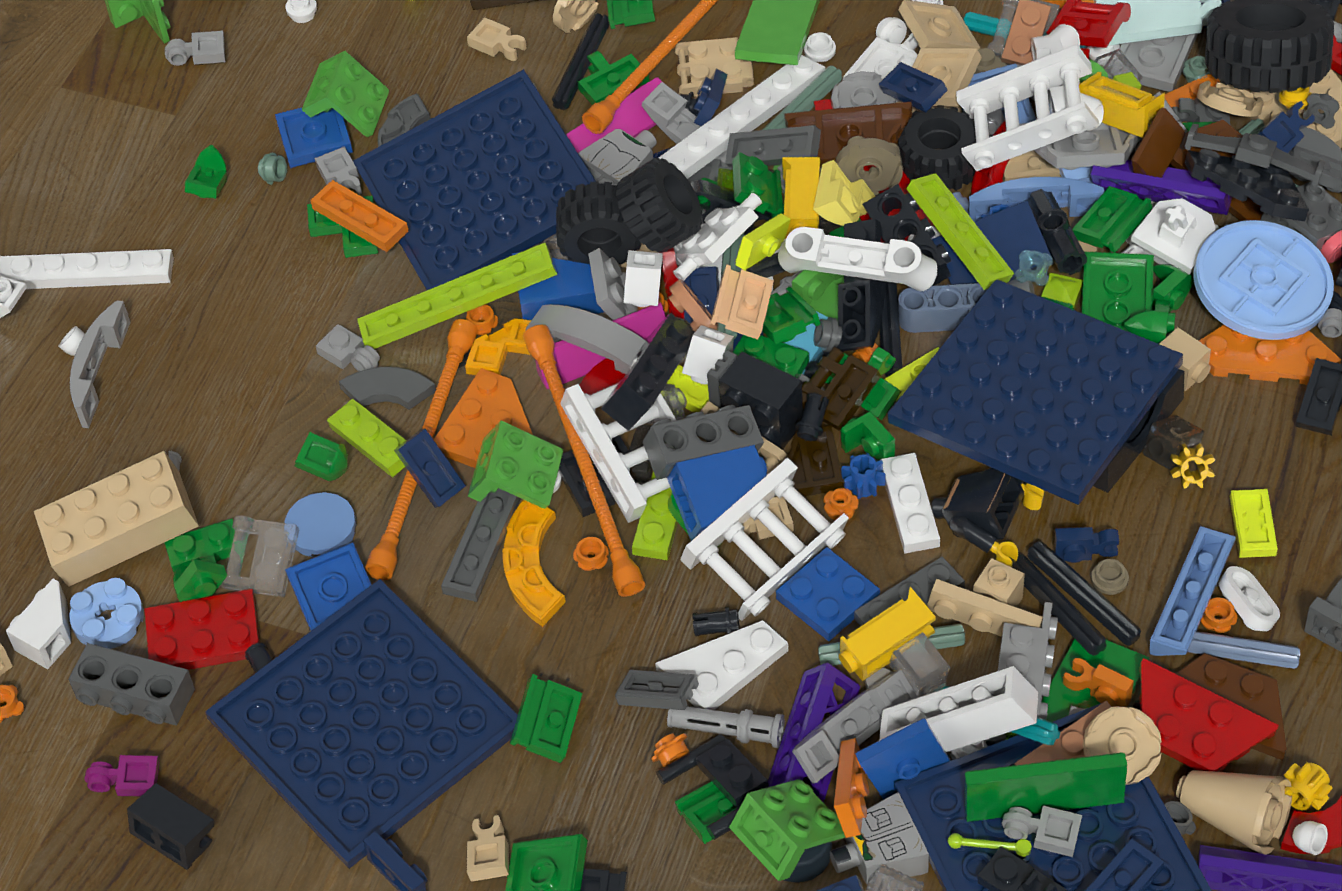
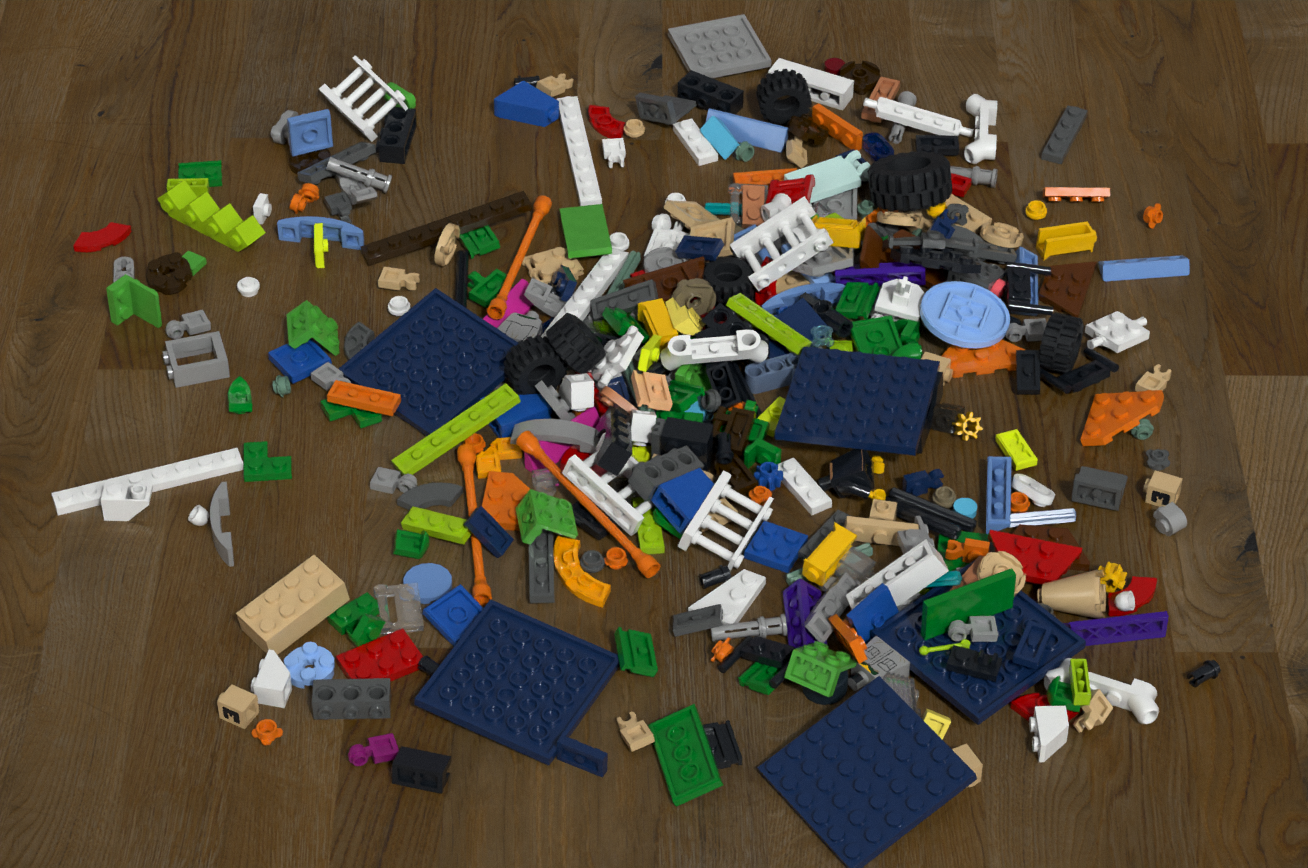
camera: 25 degrees left, 10 degrees down
(182, 123) = (199, 371): none -> light grey window
(192, 286) = (264, 468): none -> green plate
(479, 79) = (398, 306): none -> white plate
(542, 407) = (544, 481): none -> clear plate
(556, 550) = (592, 561): none -> dark grey plate
(1135, 602) = (965, 507): none -> medium azure tile

